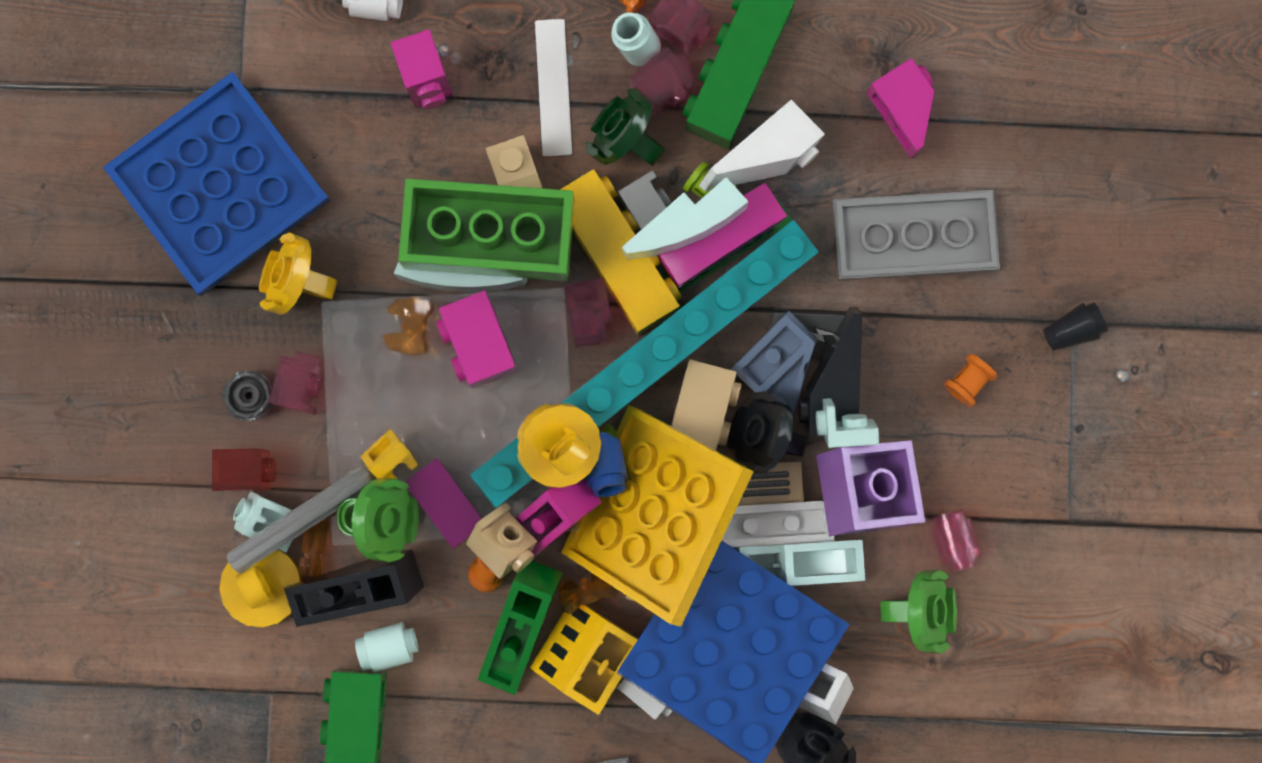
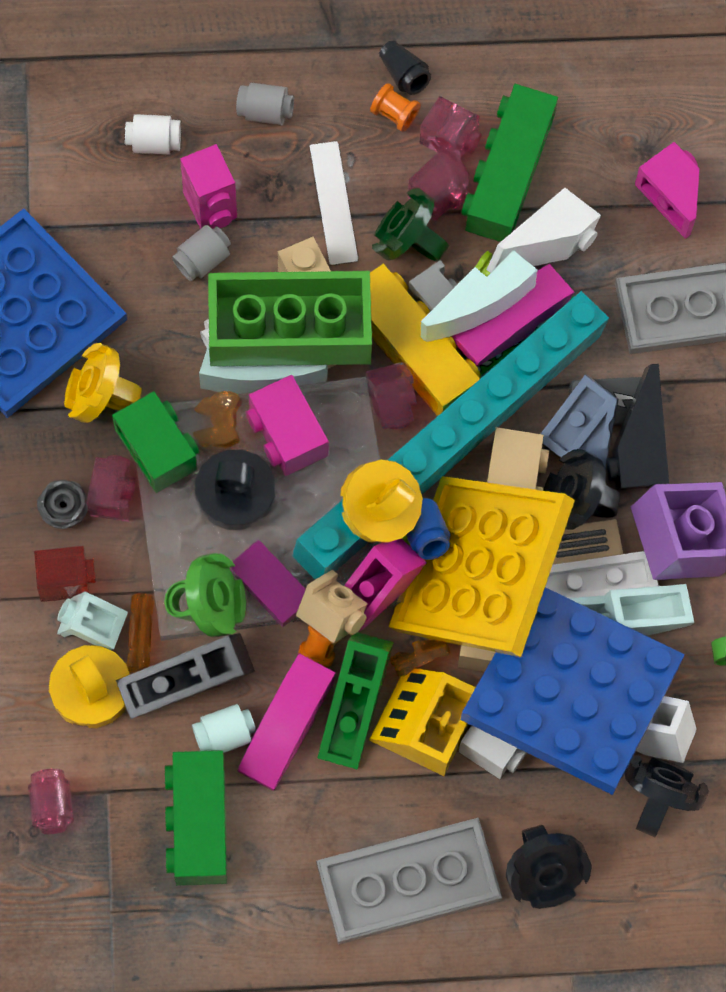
camera: 10 degrees left, 15 degrees down
(211, 703) = (50, 801): none -> clear pink brick
(298, 520) = (124, 611): light grey axle -> none
(342, 344) = (156, 441): none -> green brick
(386, 455) = (209, 538): yellow tile -> none
(411, 135) = (202, 252): none -> light grey brick
(419, 400) = (235, 489): none -> black tile
(449, 644) = (287, 721): none -> dark pink slope
(635, 38) = (409, 146): light aqua brick -> none
(851, 431) = (662, 472): light aqua bracket -> none

